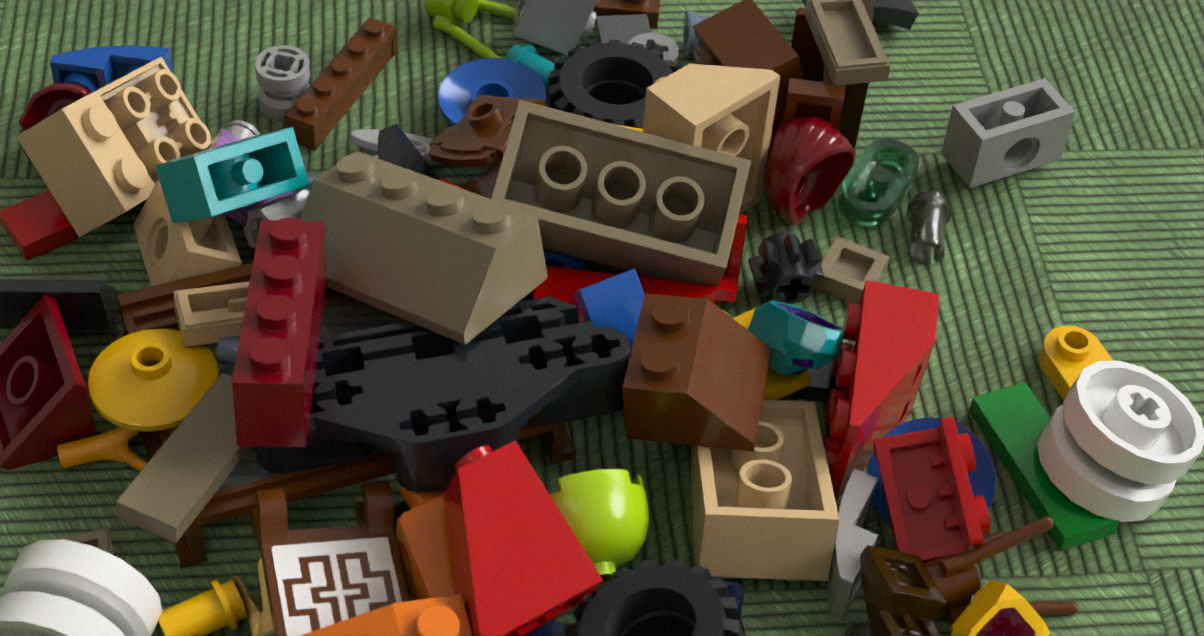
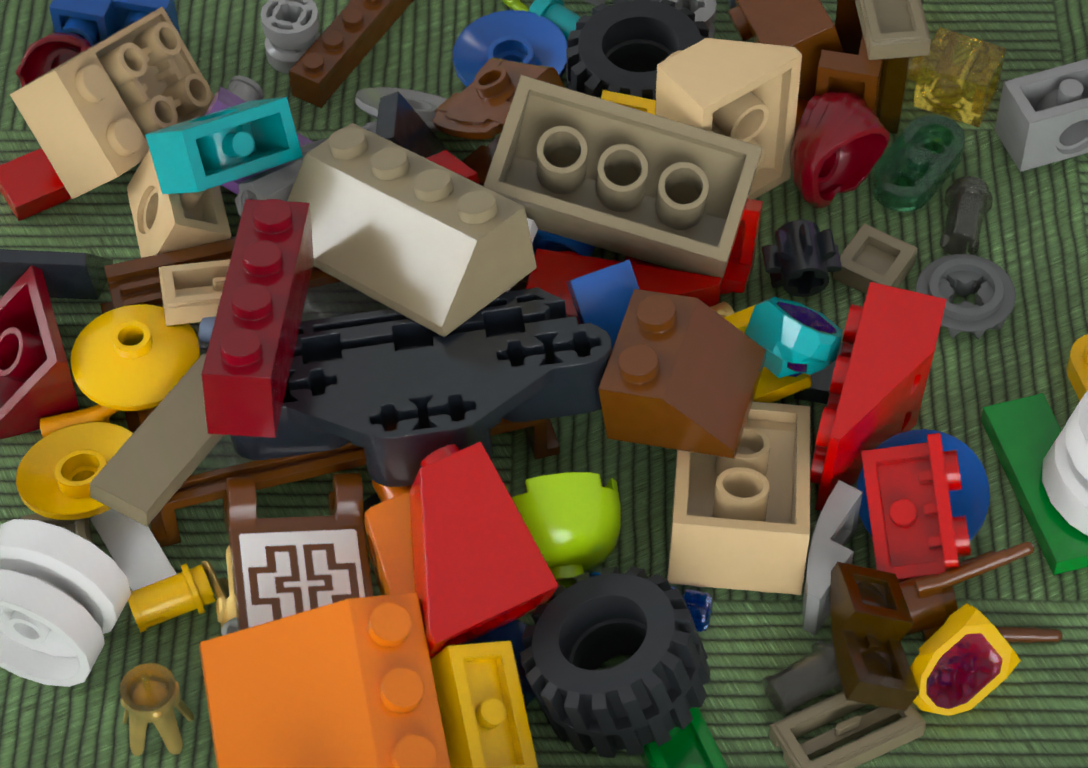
camera: 10 degrees right, 5 degrees up
(82, 493) = (59, 469): none -> yellow dish
(160, 565) = (133, 548): none -> white sticker
(903, 107) = (957, 76): none -> clear yellow brick
(966, 295) = (968, 275): none -> dark grey gear

